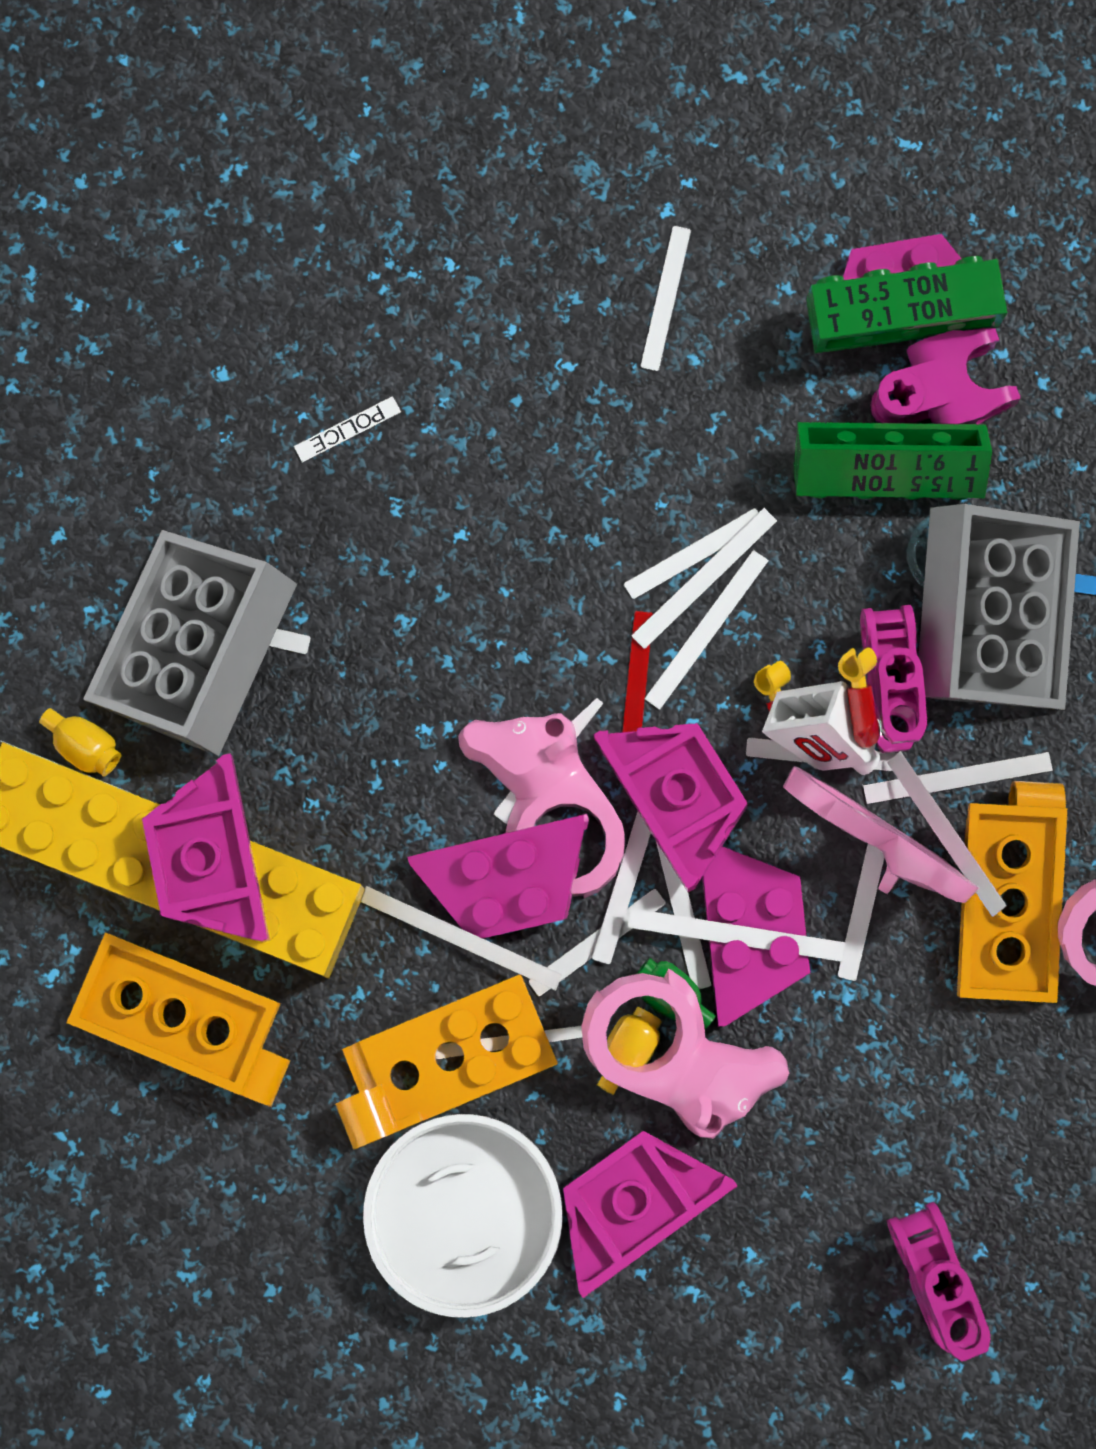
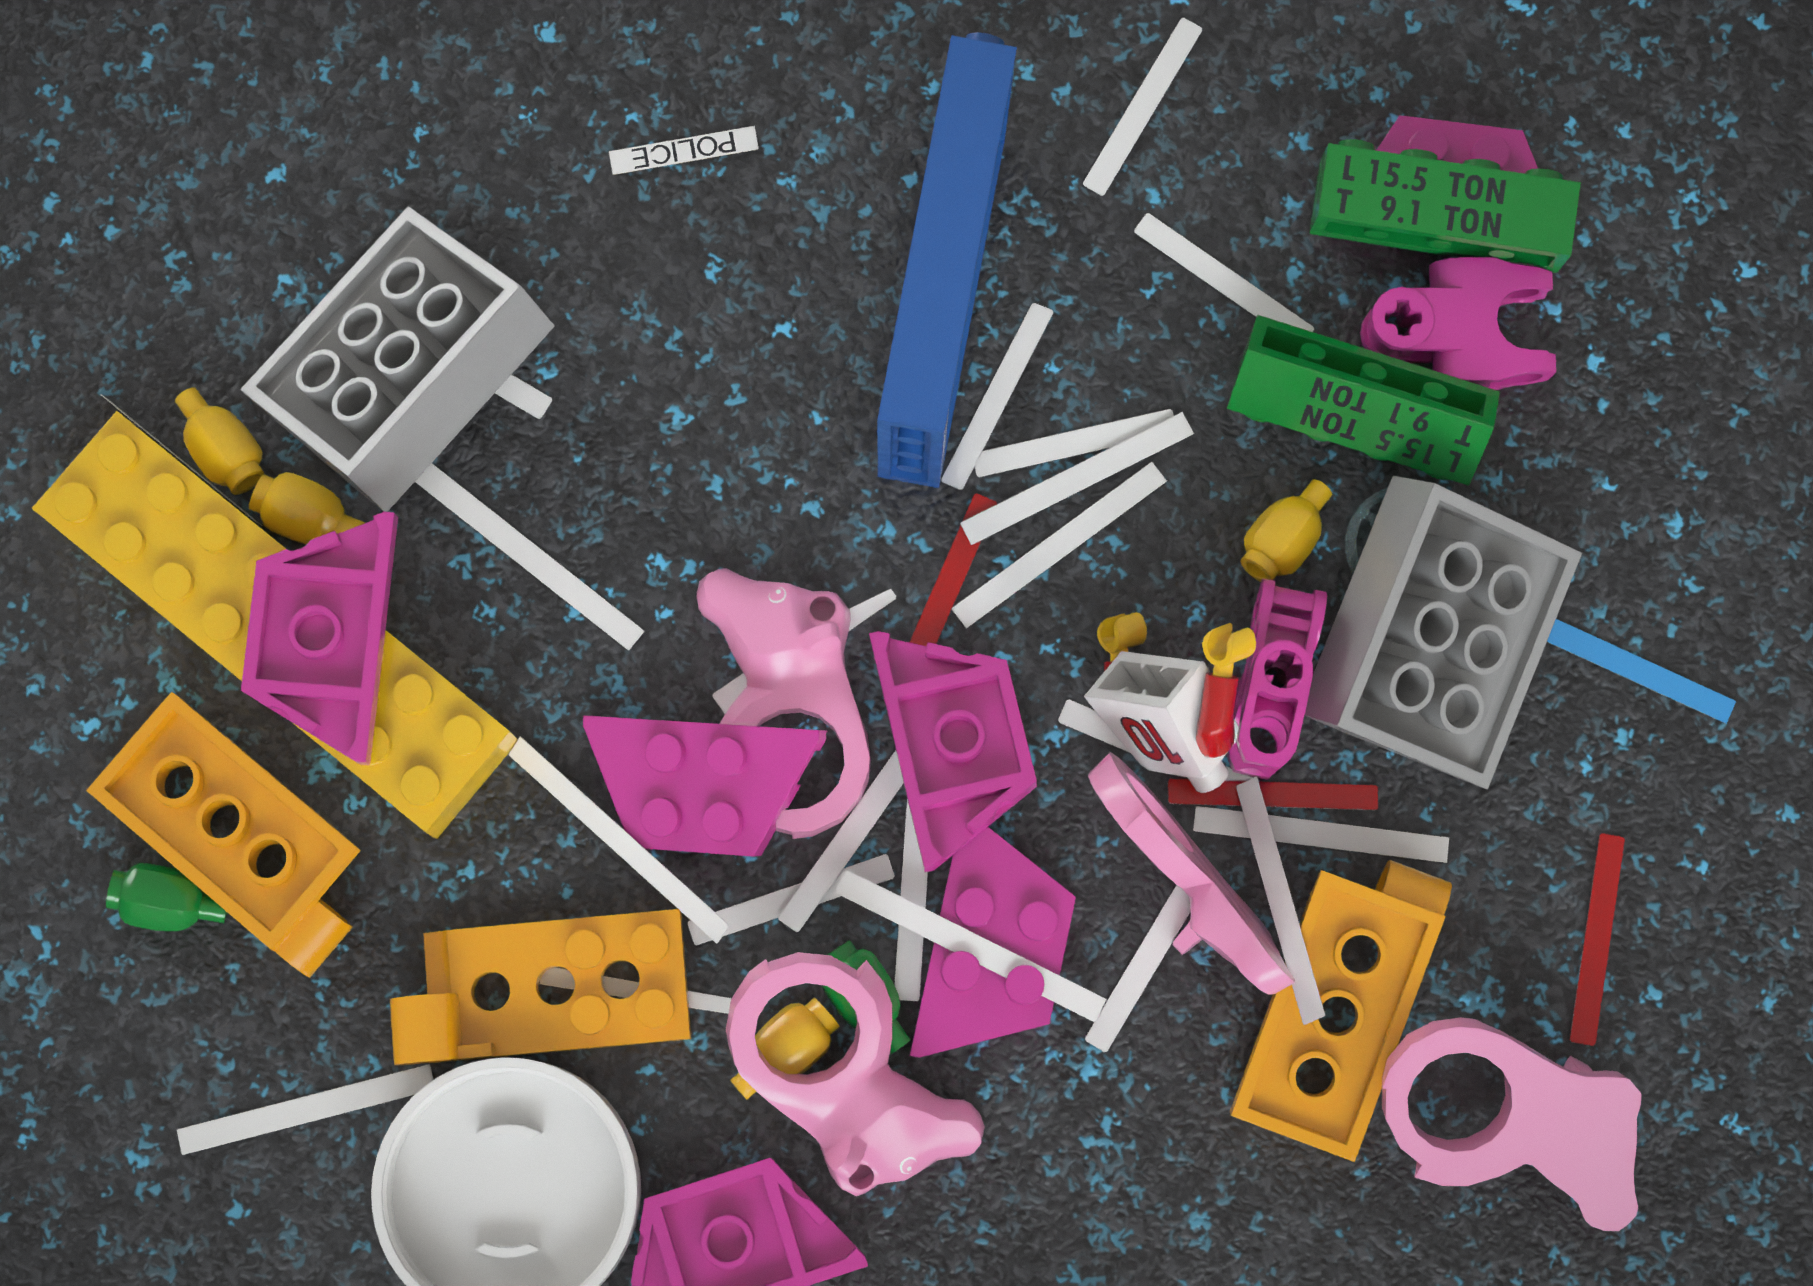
camera: 15 degrees right, 0 degrees up
(145, 1084) = (160, 899): none -> green plant
(156, 772) = (299, 508): none -> yellow plant
(296, 1202) = (303, 1109): none -> white sticker
(331, 755) = (530, 556): none -> white sticker
(569, 451) = (945, 260): none -> blue window
(628, 537) = (997, 396): none -> white sticker
(755, 401) = (1215, 272): none -> white sticker
(865, 572) = (1285, 533): none -> yellow plant
(920, 759) = (1280, 795): none -> red sticker

